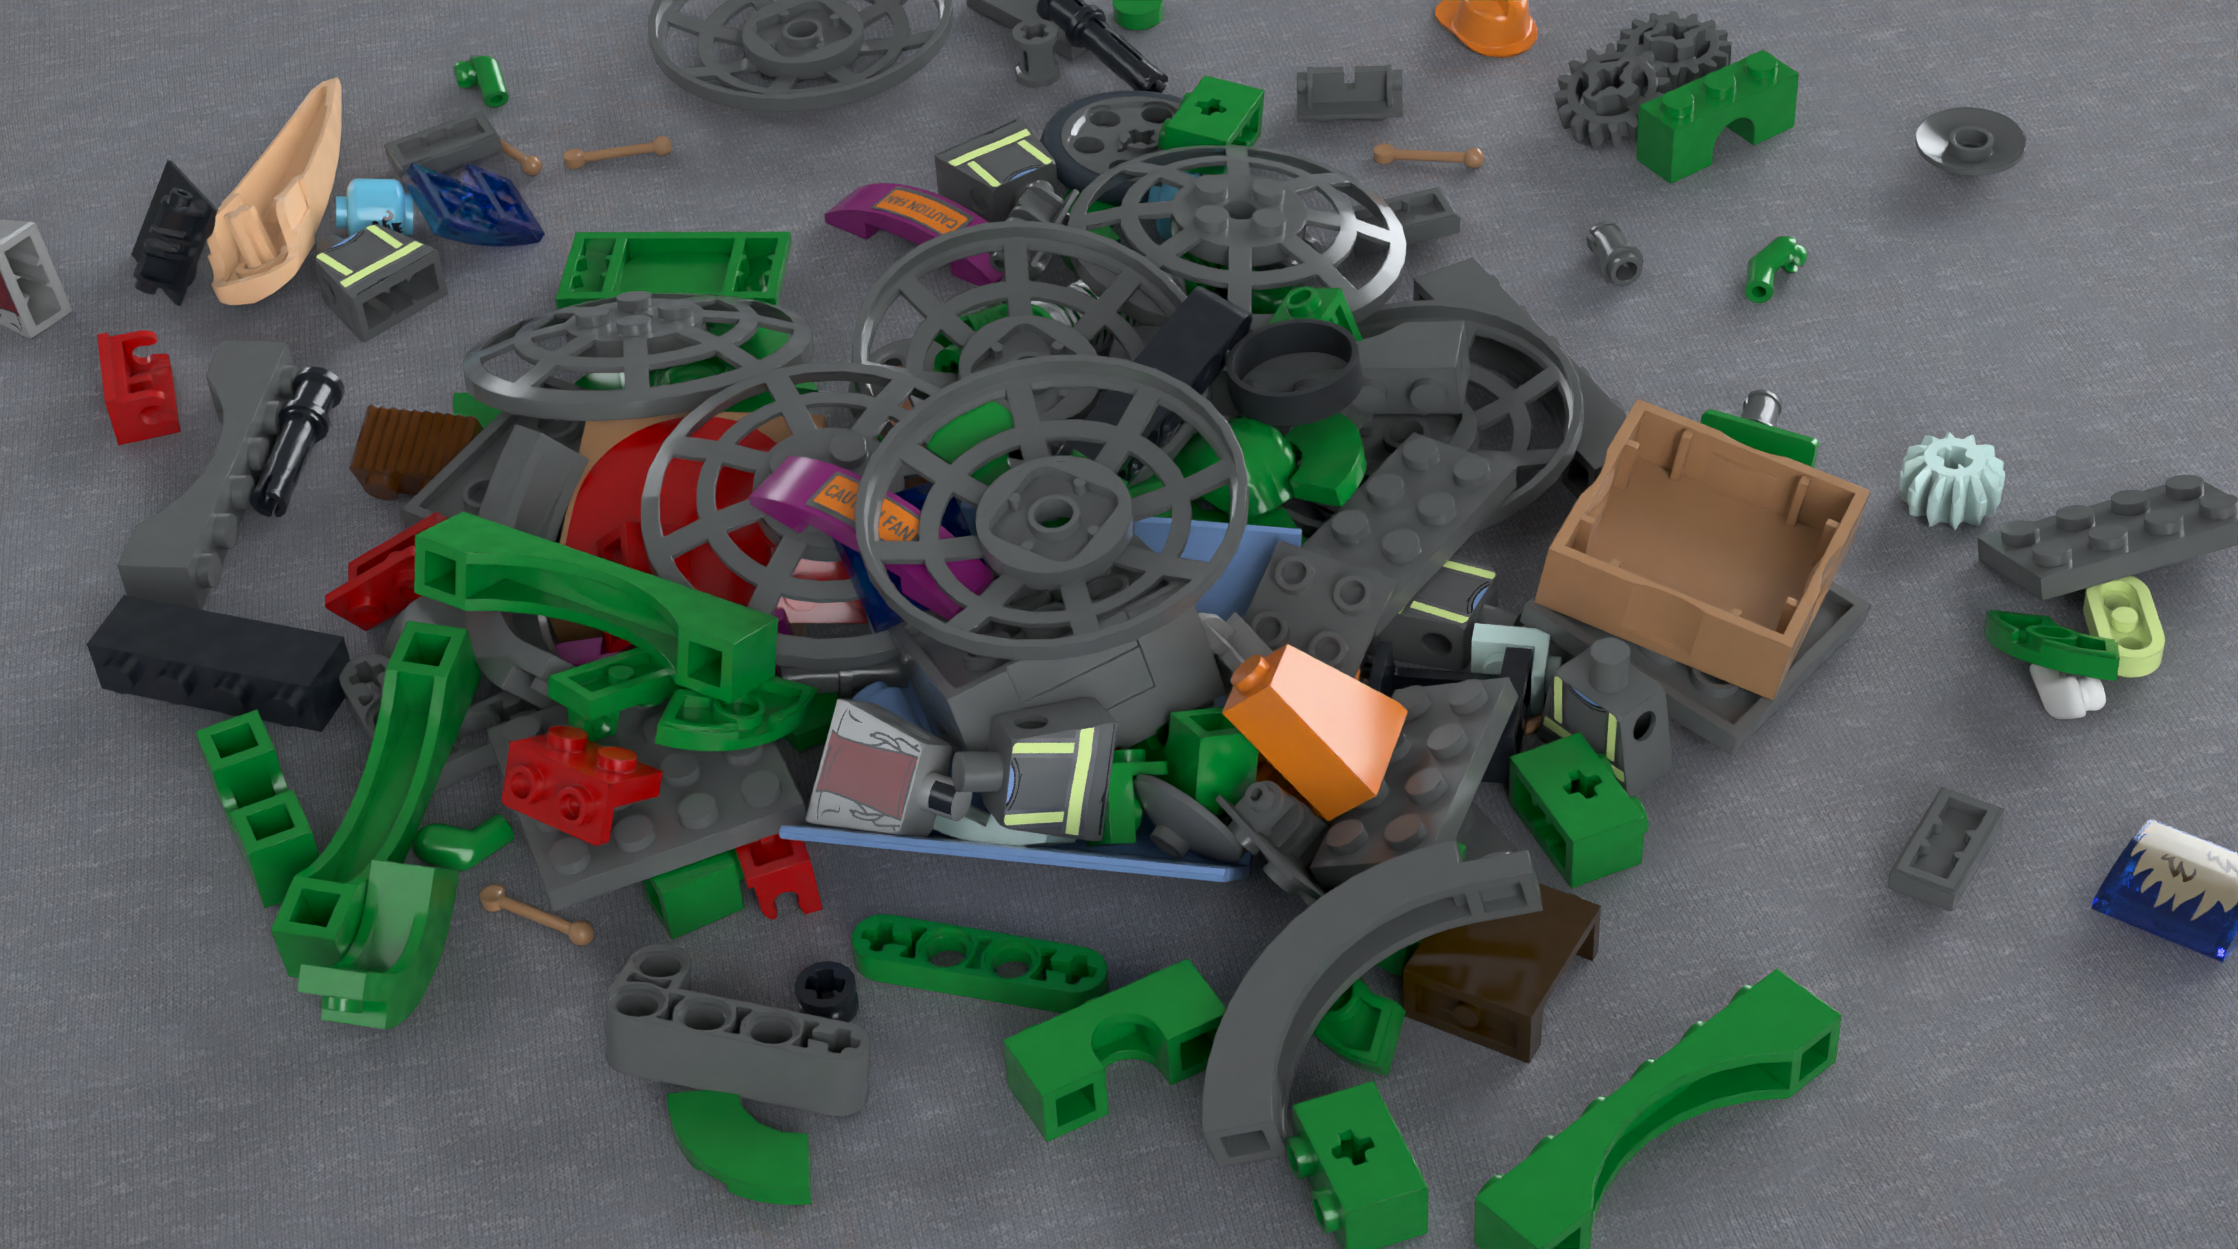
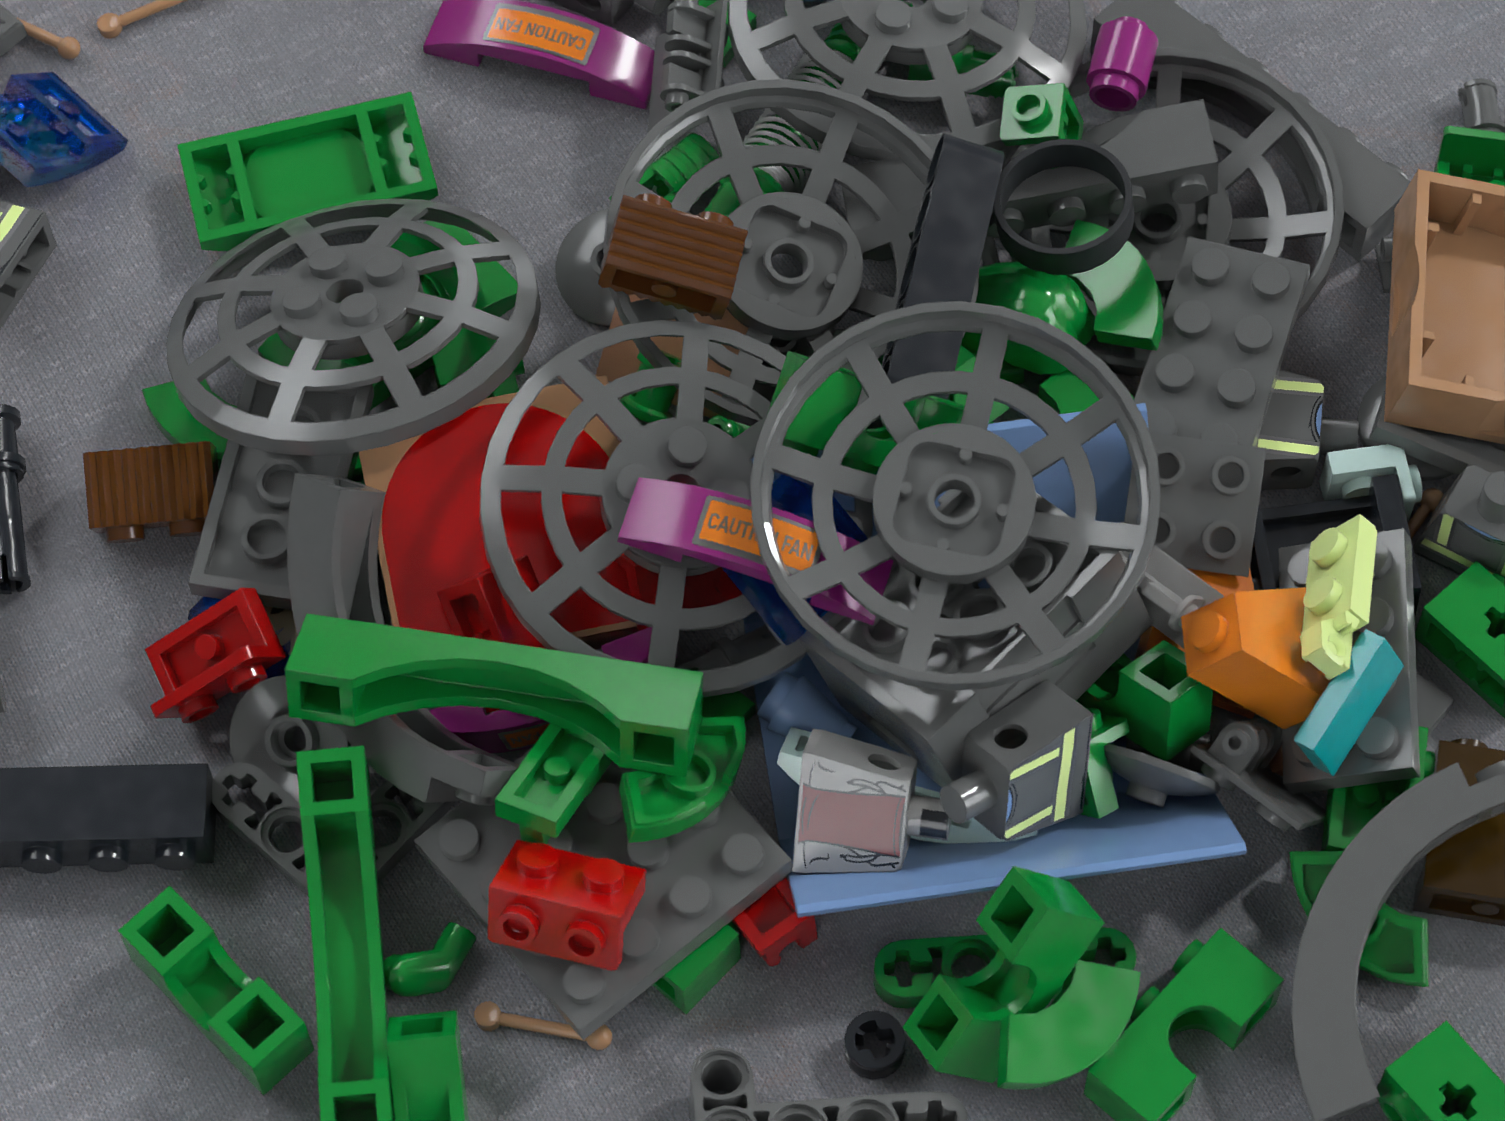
camera: 20 degrees left, 20 degrees up
(908, 319) = (673, 255): none -> reddish brown brick
(921, 981) = (1040, 937): none -> green arch
(996, 996) = (1071, 1031): none -> green tile
(1382, 787) = (1349, 703): none -> teal tile
(1404, 695) = (1337, 593): none -> yellowish green hinge
(1411, 294) = (1121, 63): none -> magenta brick

